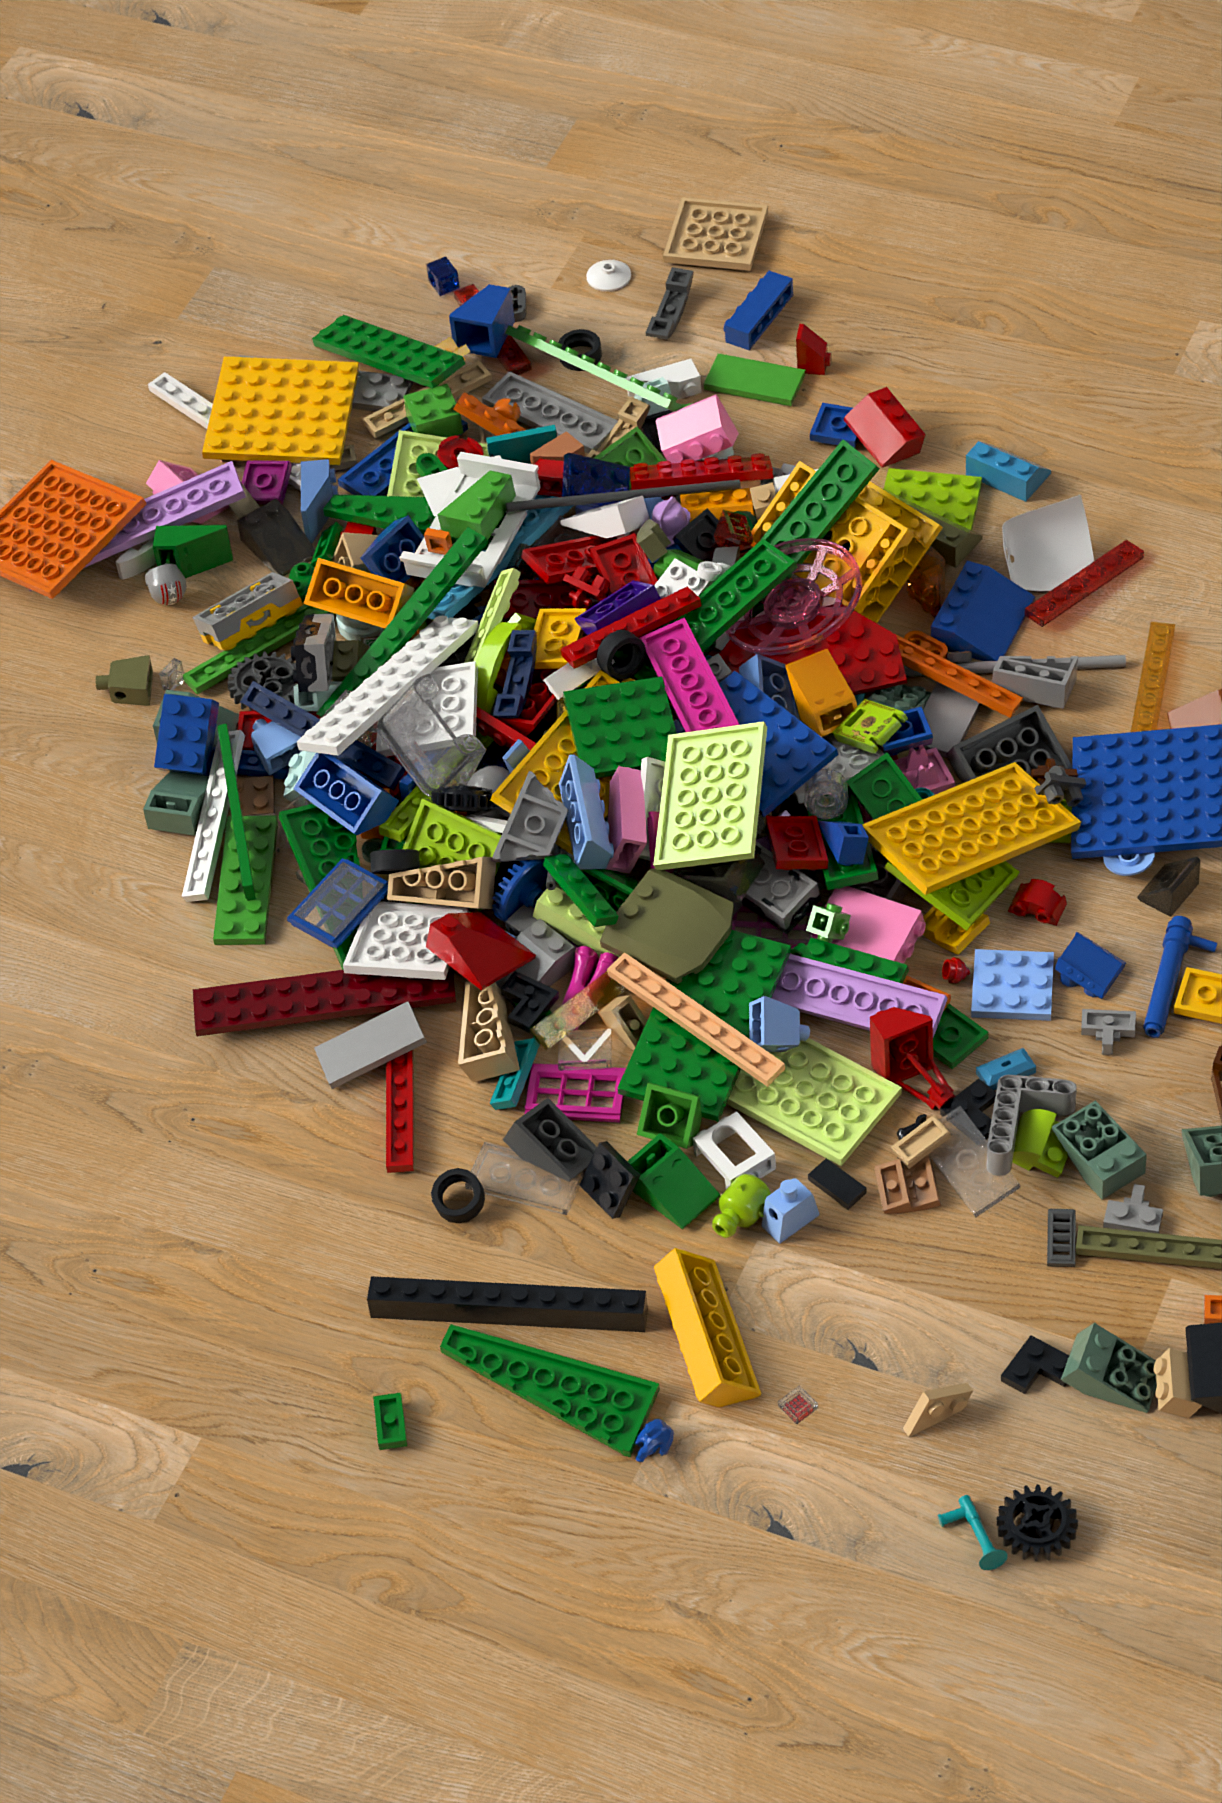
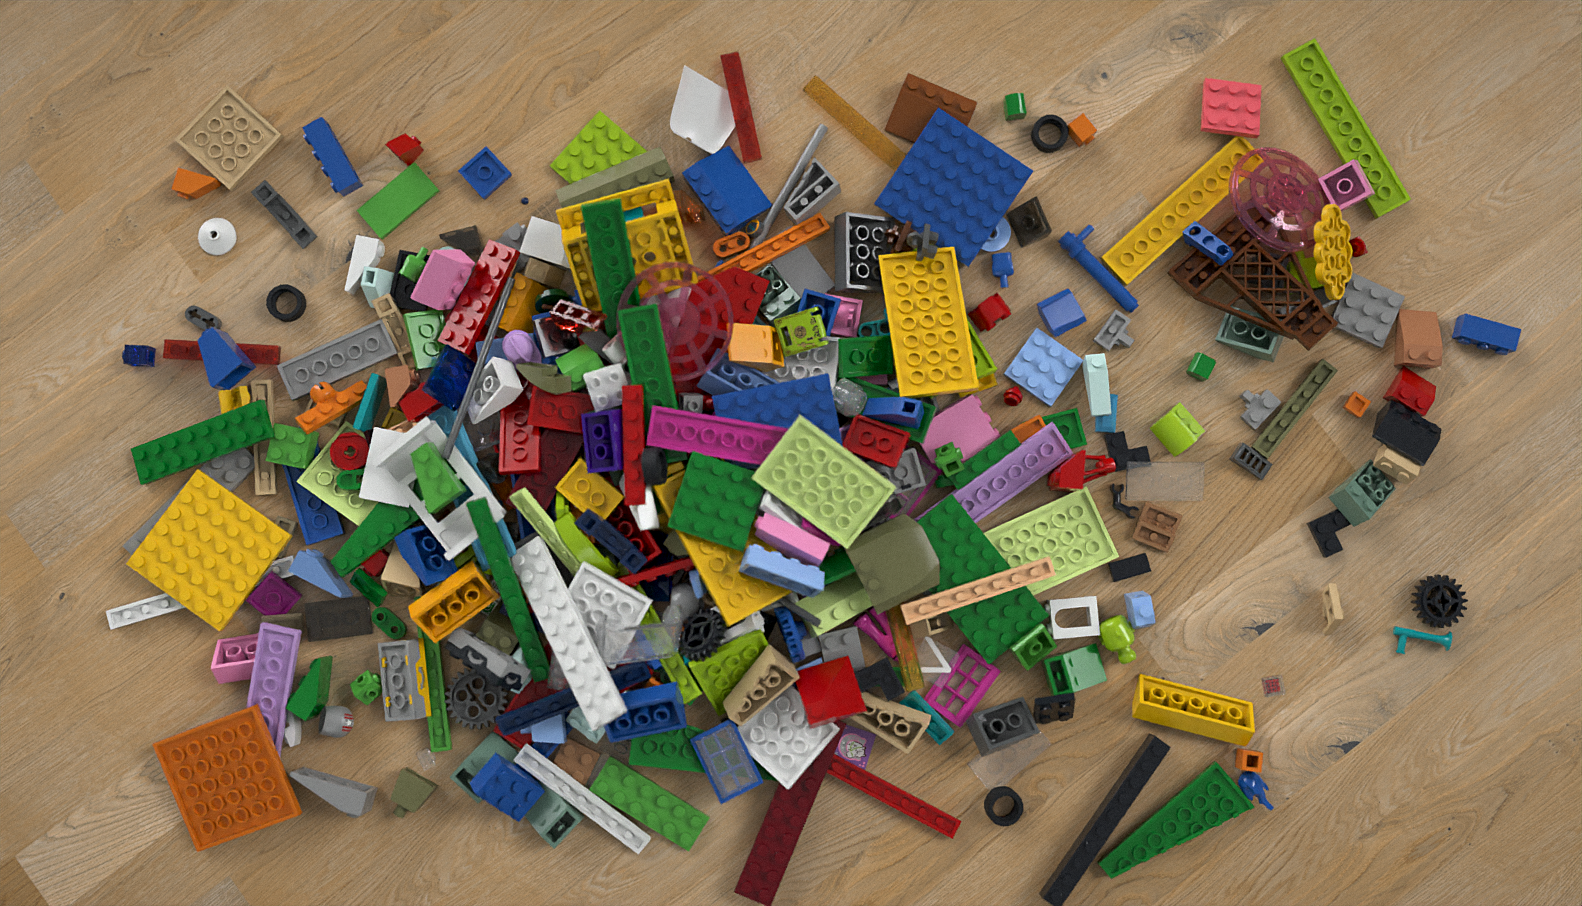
camera: 65 degrees left, 35 degrees up
(91, 623) = (342, 793): none -> light grey slope
(217, 589) = (367, 687): none -> bright green brick
(236, 812) = (600, 788): green tile -> none
(370, 1045) = (849, 797): light grey tile -> none
(394, 861) = (727, 711): black tyre -> none
(438, 541) = (446, 522): orange plate -> none
(439, 1030) = (855, 746): none -> sticker
(532, 824) = (769, 611): light grey wing -> none
(578, 582) = (558, 449): red hips -> none
(580, 890) = (837, 607): green plate -> none
(600, 370) = (327, 310): plate -> none
(647, 231) = (193, 184): none -> orange slope
(684, 1411) = (1249, 760): none -> orange brick
(709, 571) = (614, 361): white tile -> none
(755, 439) = (466, 239): none -> clear smoke slope
(775, 1025) = (1008, 542): light blue torso -> none
(885, 428) = (515, 146): slope -> none
(921, 1141) = (1138, 501): tan tile -> none
(1005, 470) = (603, 89): dark azure slope -> none
(1019, 1095) = (1157, 436): light grey beam -> none
(1033, 1030) = (1097, 384): none -> light aqua slope
(1098, 887) = (1002, 267): none -> blue piece
(1100, 1149) = (1209, 398): sand green slope -> none
(1137, 1126) = (1201, 366): none -> green piece

